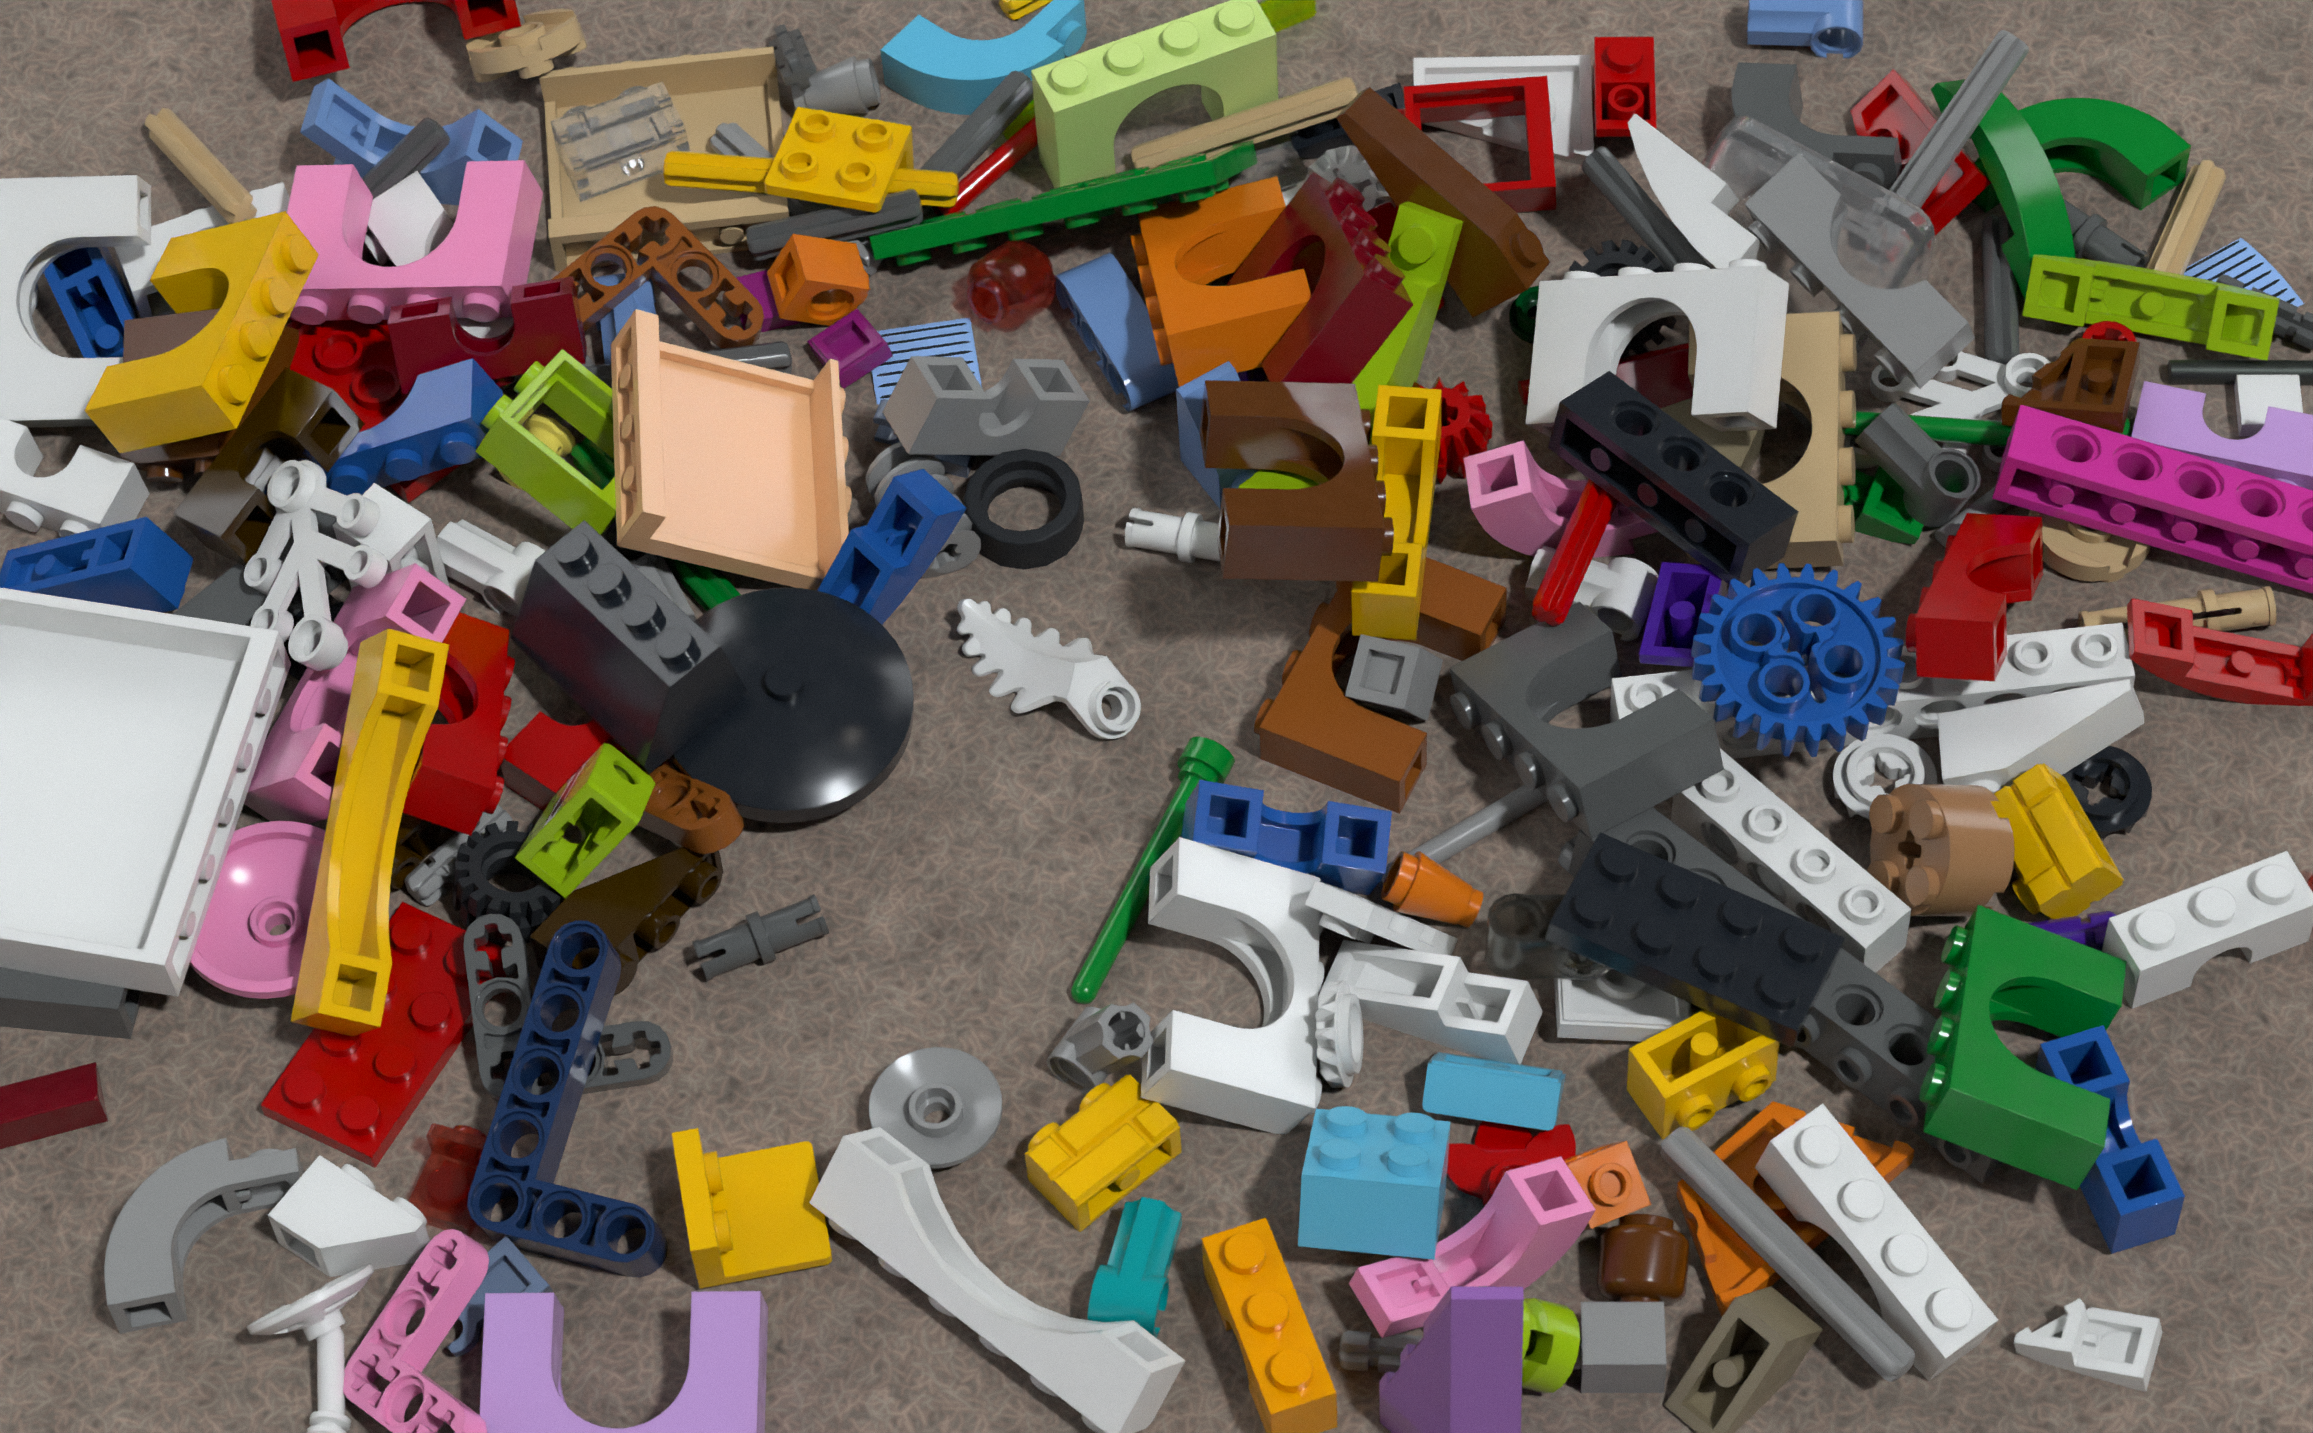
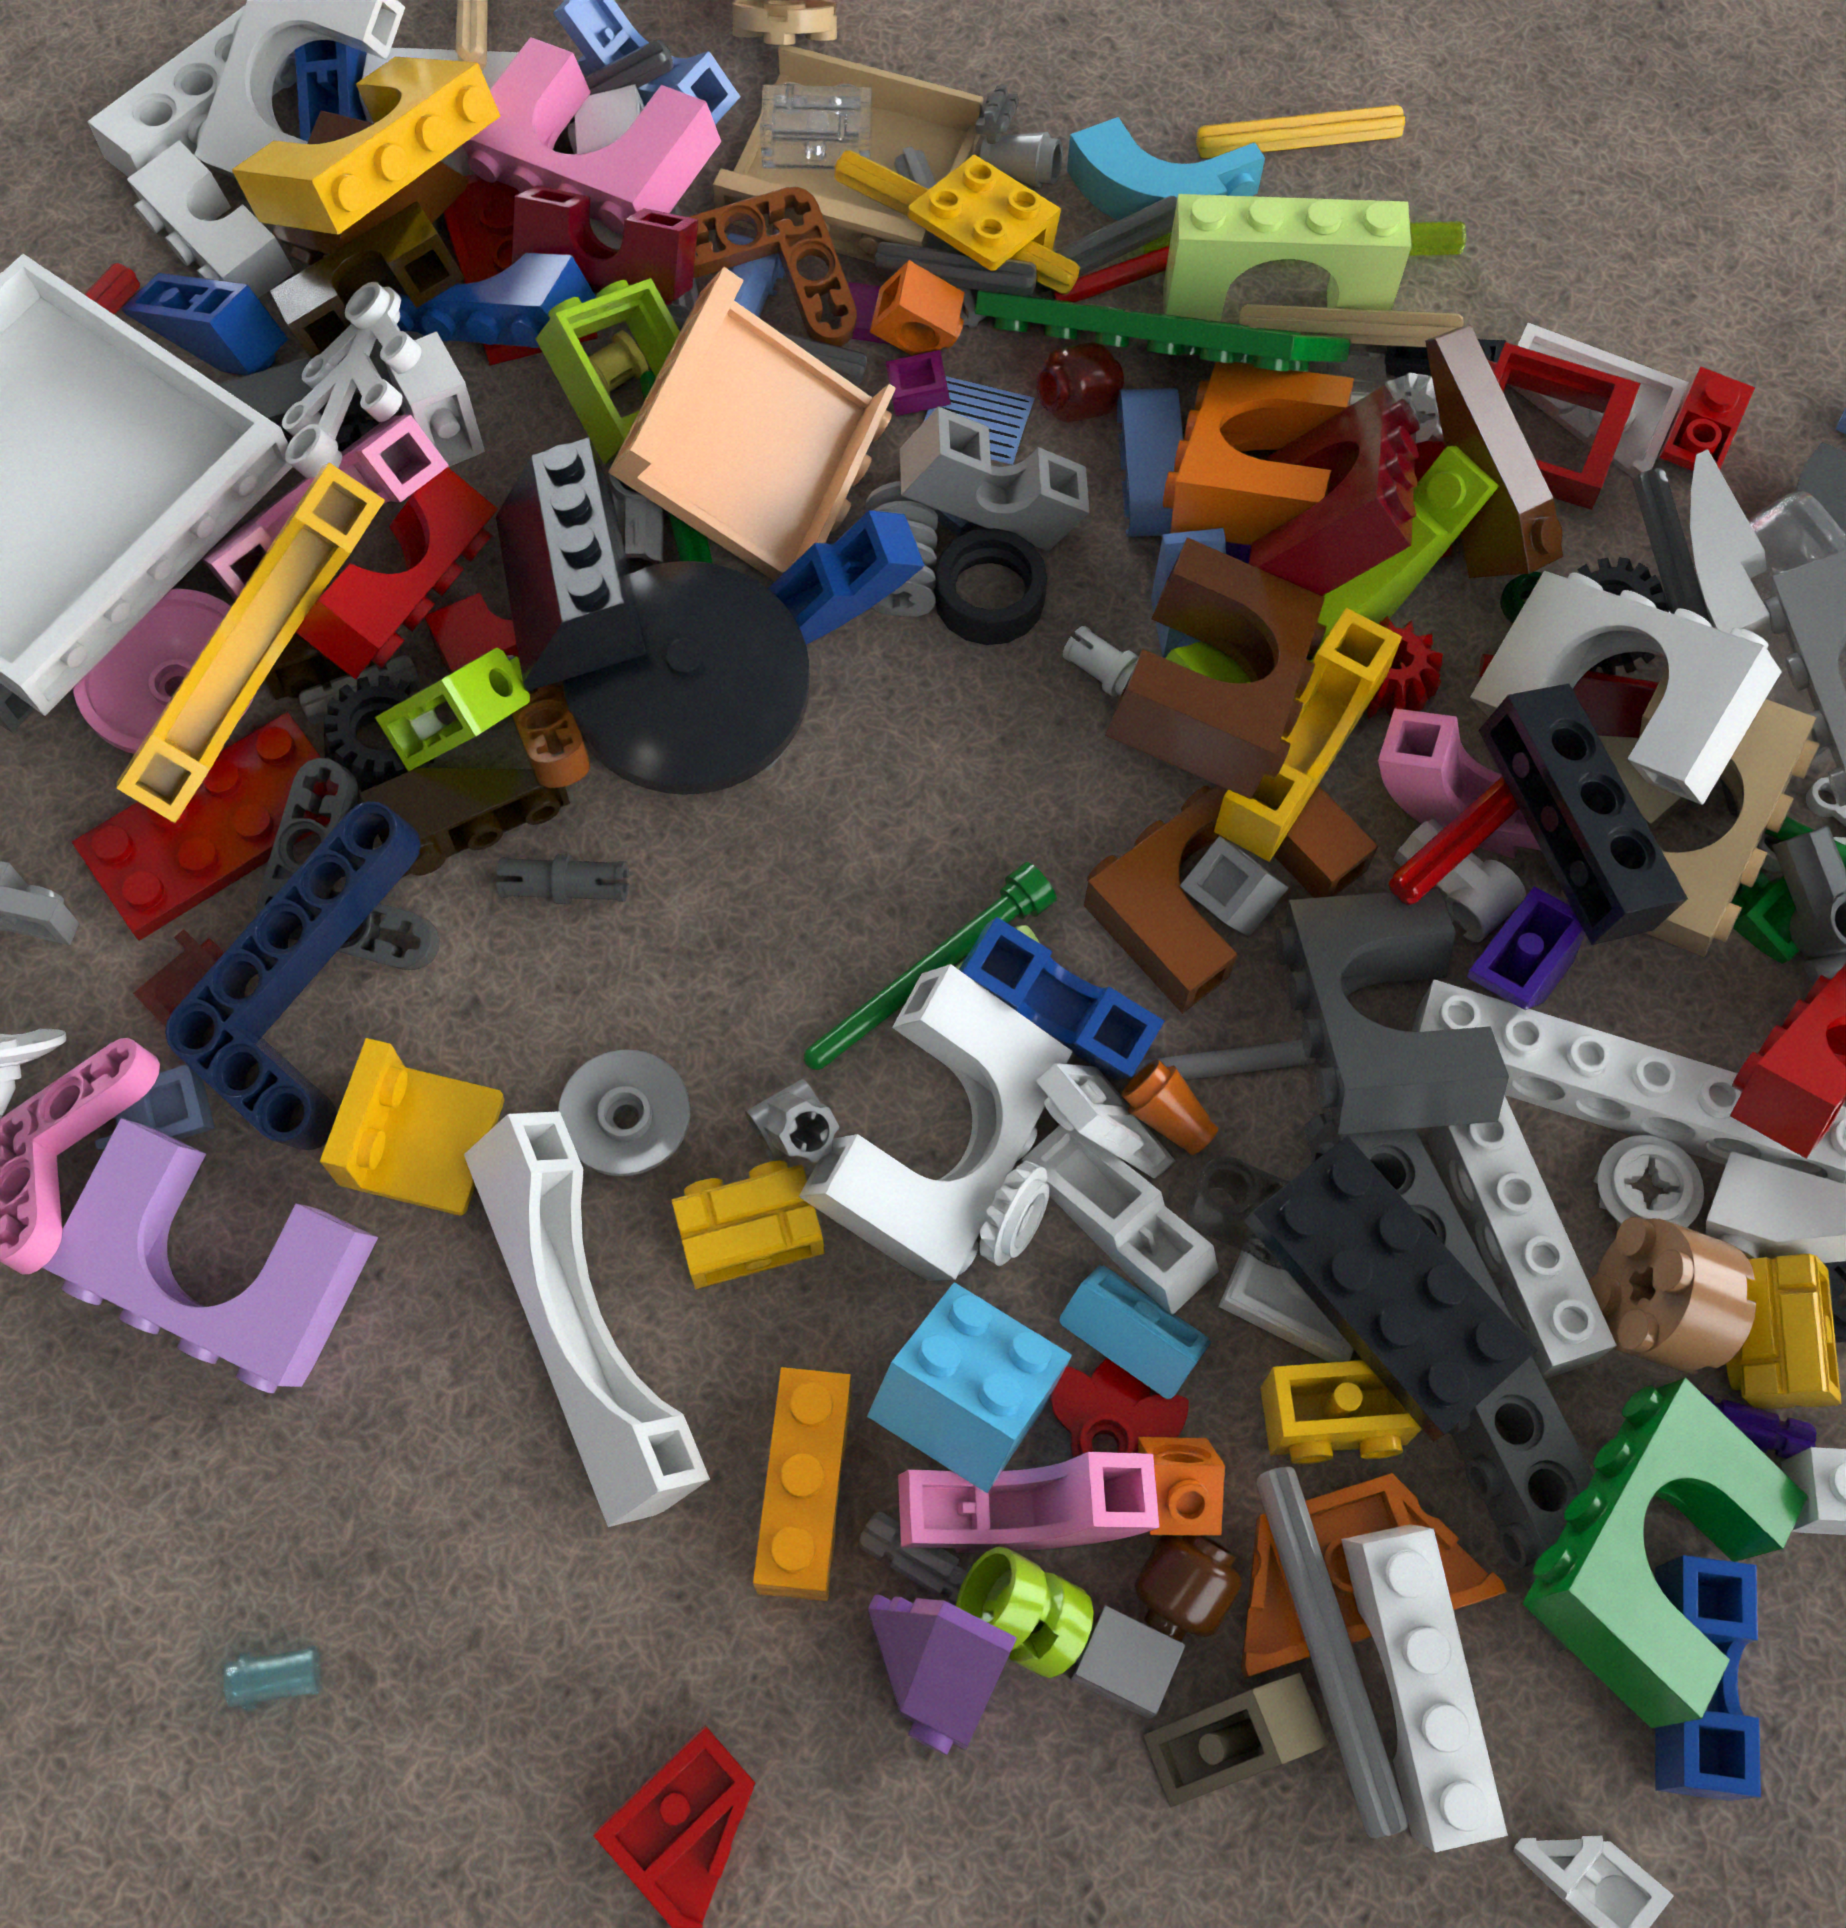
camera: 20 degrees right, 10 degrees up
(343, 1223) = (69, 981): white slope -> none
(488, 564) = (511, 435): white piece -> none
(1046, 670) = (936, 741): white plant -> none
(1137, 1271) = (710, 1369): teal piece -> none
(1848, 642) = (1678, 1052): blue gear -> none

